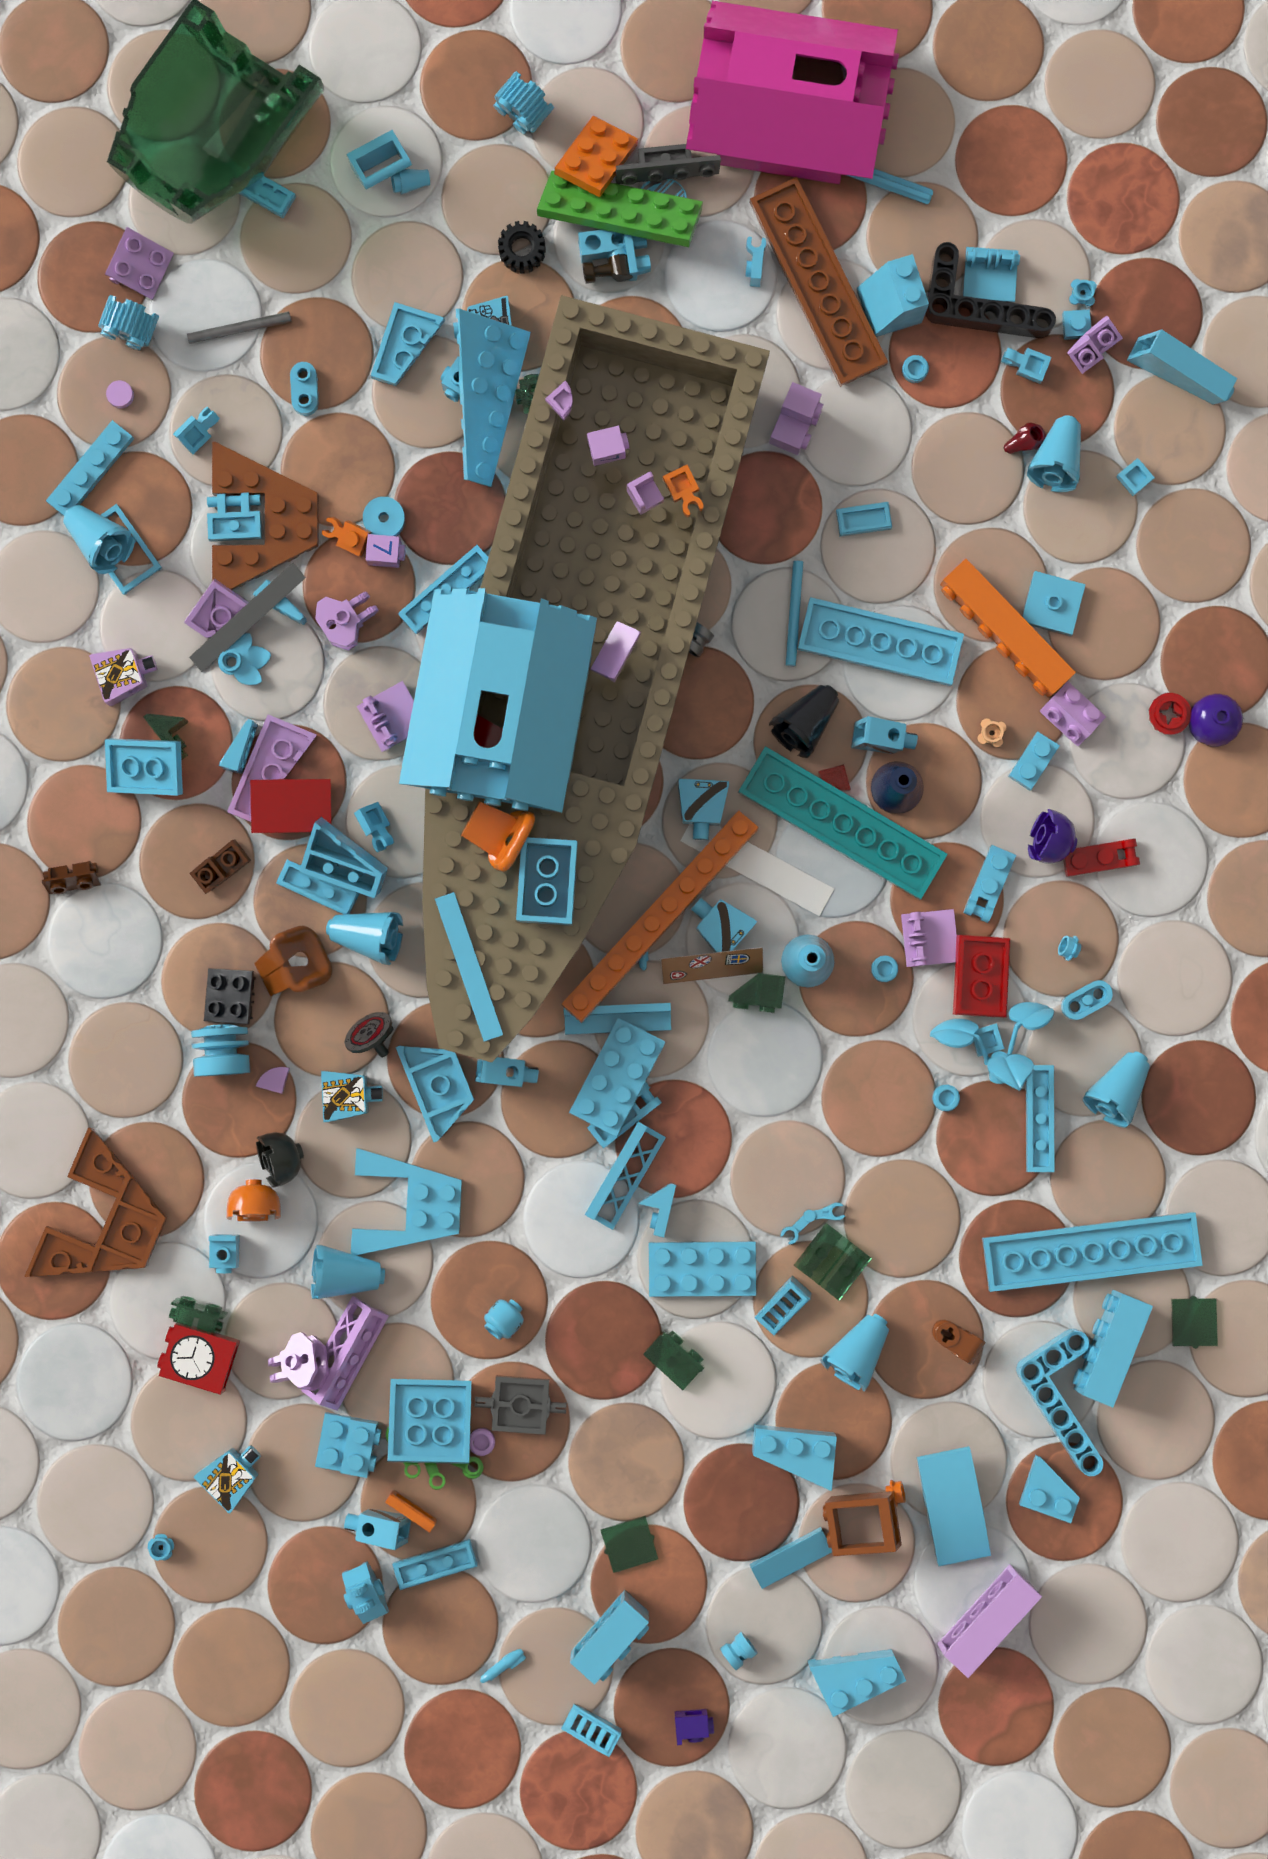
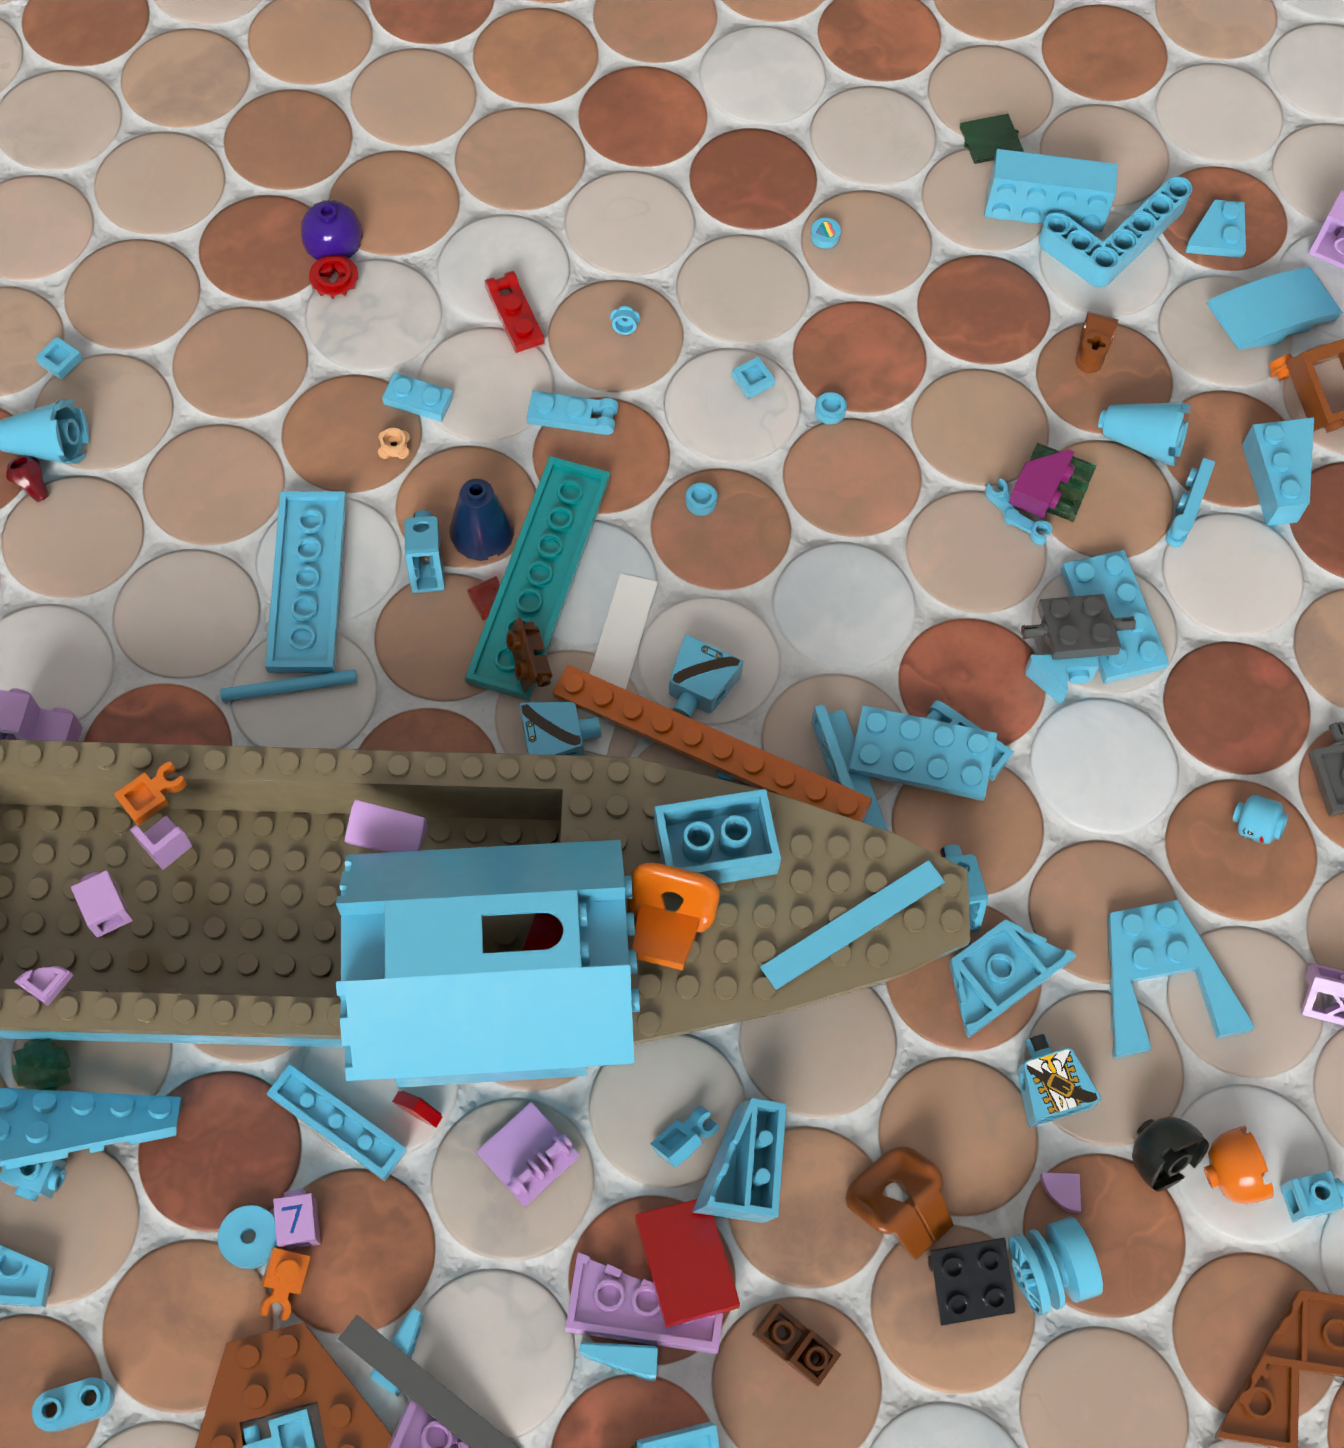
camera: 105 degrees left, 20 degrees down
(248, 659) = (491, 1383): medium azure plate -> none
(320, 891) = (784, 1233): medium azure tile -> none
(343, 1273) = (1284, 1030): medium azure cone -> none
(347, 621) = (405, 1250): lavender hinge -> none
(368, 934) = (834, 1109): medium azure cone -> none
(370, 1033) = (964, 1071): shield -> none
(617, 1168) = (1035, 730): medium azure fence -> none
(674, 1359) = (1230, 621): clear green bracket -> none
(690, 1230) = (1078, 627): none -> dark grey plate
(712, 965) = (753, 675): medium nougat sticker -> none
(760, 991) = (767, 617): clear green slope -> none
(777, 794) = (524, 642): none -> reddish brown hinge
(784, 1364) = (1190, 503): none -> medium azure plate
(797, 966) = (715, 574): medium azure cone -> none
(799, 1289) = (1118, 506): medium azure slope -> none
(805, 720) = (424, 636): black cone -> none
(825, 1242) = (1039, 483): none -> magenta slope
(864, 519) = (154, 633): medium azure tile -> none
(929, 937) = (652, 459): lavender hinge -> none
(981, 976) = (682, 398): red tile -> none
(1002, 1067) = (784, 319): medium azure plant -> none
(1006, 628) = (264, 451): orange brick -> none
(1040, 1120) = (824, 311): medium azure plate -> none
(1053, 603) = (225, 413): medium azure plate -> none
(1053, 837) = (504, 354): dark purple cylinder -> none
(1072, 714) = (354, 367): lavender bracket -> none
(1086, 1000) = (681, 293): medium azure plate -> none
(1092, 1251) = (954, 239): medium azure plate -> none
(1119, 1090) = (770, 238): medium azure cone -> none
(1122, 1143) = (825, 233): none -> medium azure tile

